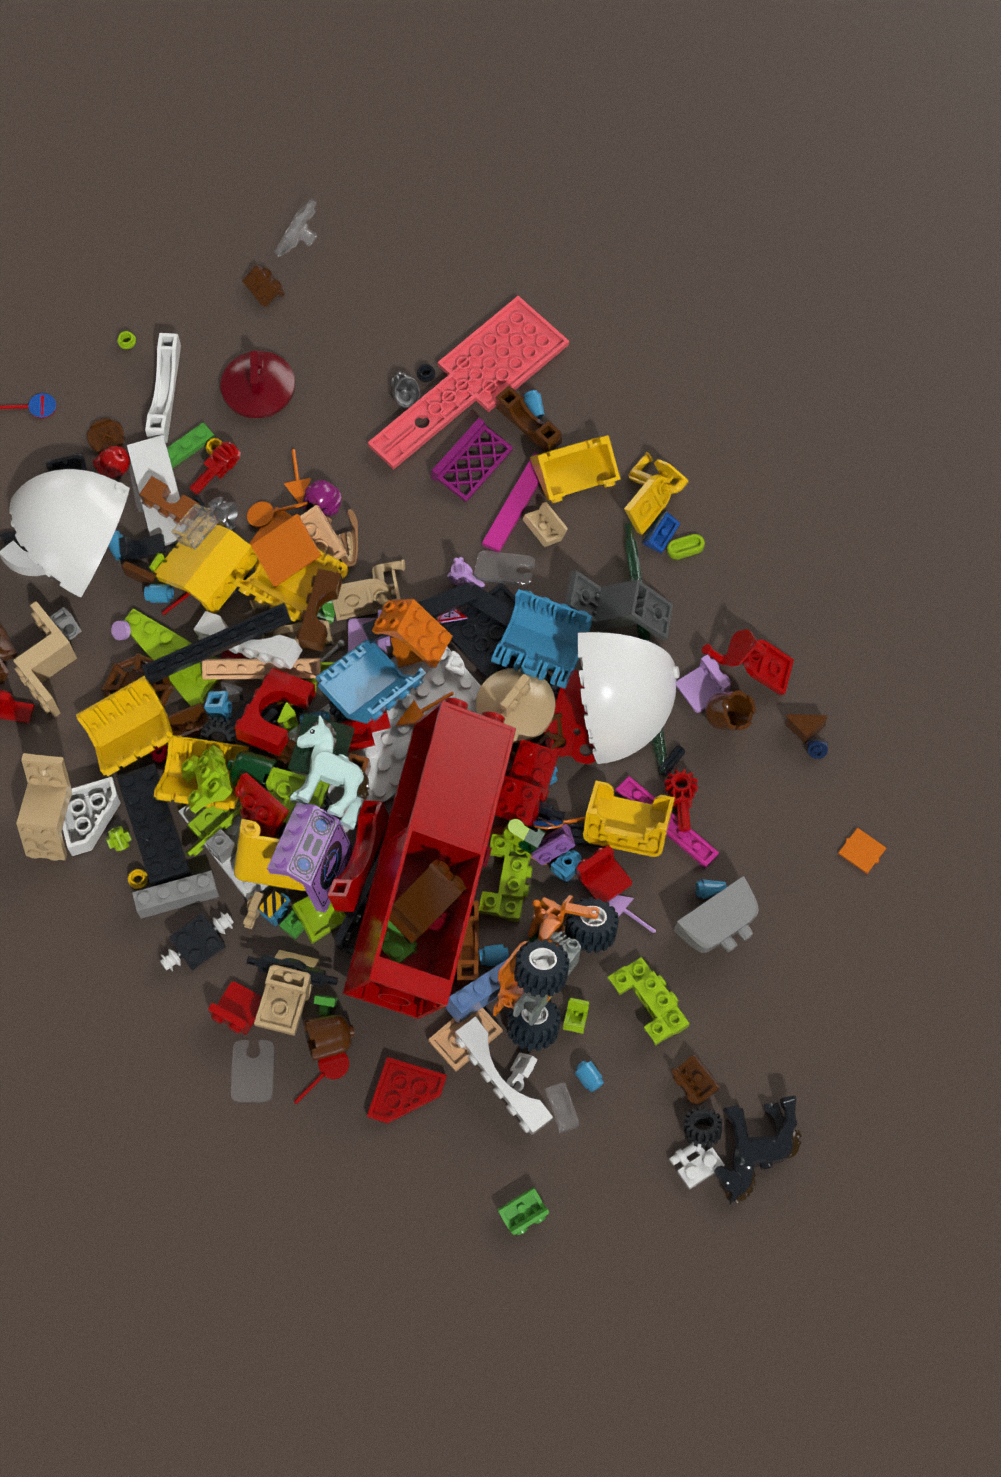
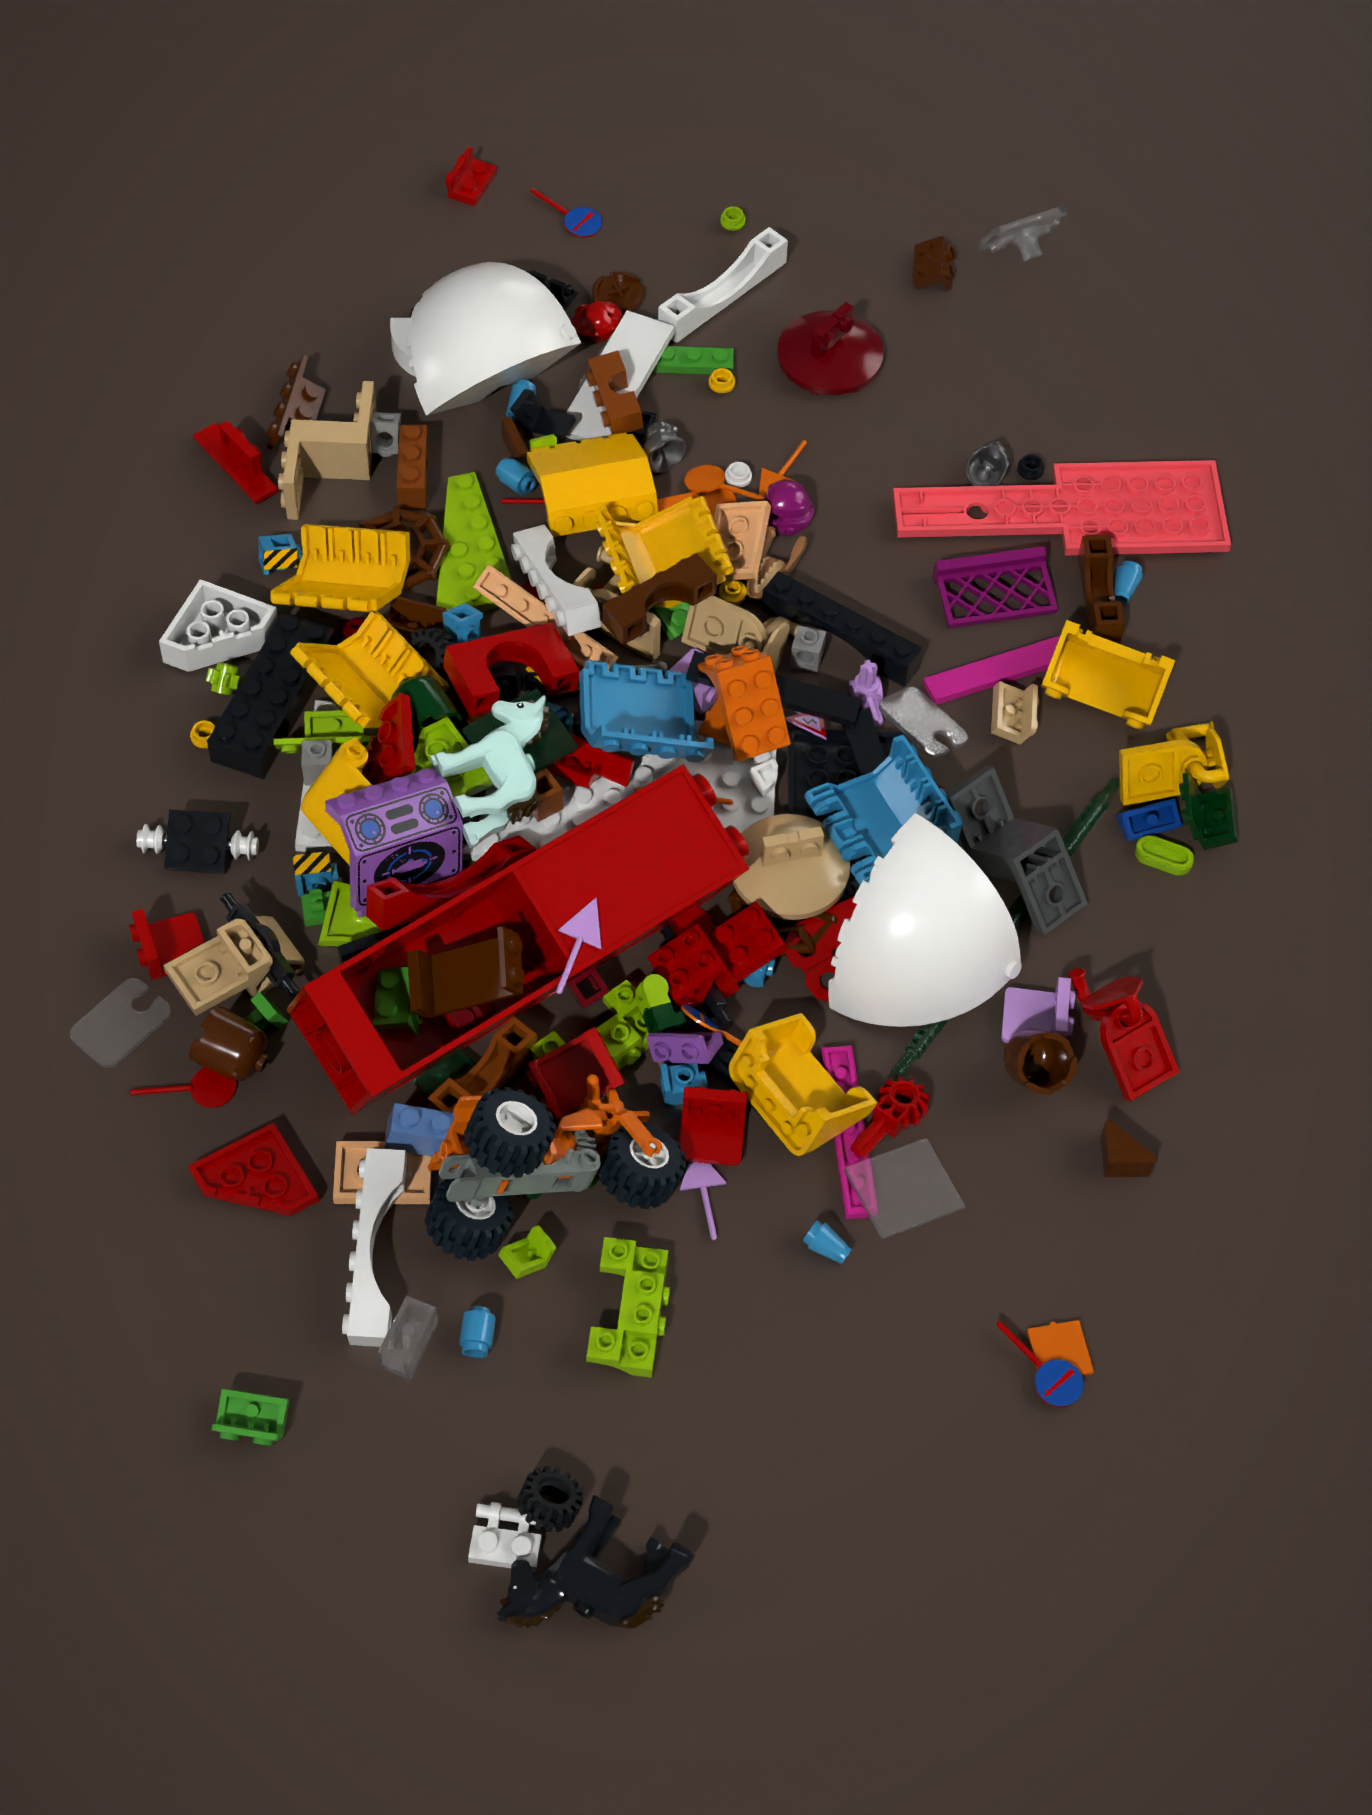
camera: 35 degrees right, 10 degrees down
(44, 807) = (172, 577): tan bracket -> none
(73, 743) = (278, 552): none -> brick
(98, 631) = (412, 467): none -> dark orange arch
(121, 630) = (439, 482): lavender tile -> none
(175, 894) = (225, 778): light grey brick -> none
(195, 526) = (614, 430): clear brick -> none
(210, 776) = (364, 672): lime bracket -> none
(217, 643) = (518, 555): black tile -> none
(218, 464) = (708, 395): red gear -> none
(235, 693) = (490, 623): clear slope -> none
(253, 911) = (277, 863): tan plate -> none
(277, 498) = (738, 474): none -> white plate
(286, 550) = (686, 519): orange piece -> none
(287, 718) = (516, 684): lime slope -> none
(410, 573) = (807, 649): none -> light grey brick
(448, 542) = (893, 654): none -> black arch
(469, 829) = (585, 929): none -> lavender piece
(514, 905) = (566, 1068): none -> red panel
(521, 1068) = (409, 1259): white plate -> none
(673, 758) = (927, 1067): black piece -> none
(692, 505) = (1209, 814): none -> dark green bracket
(695, 1080) = (595, 1440): reddish brown bracket -> none
(720, 829) = (904, 1188): none -> clear piece
(720, 919) = (801, 1279): light grey hips -> none
(817, 749) = (1113, 1192): dark blue plate -> none
(874, 867) = (1056, 1380): none -> blue piece

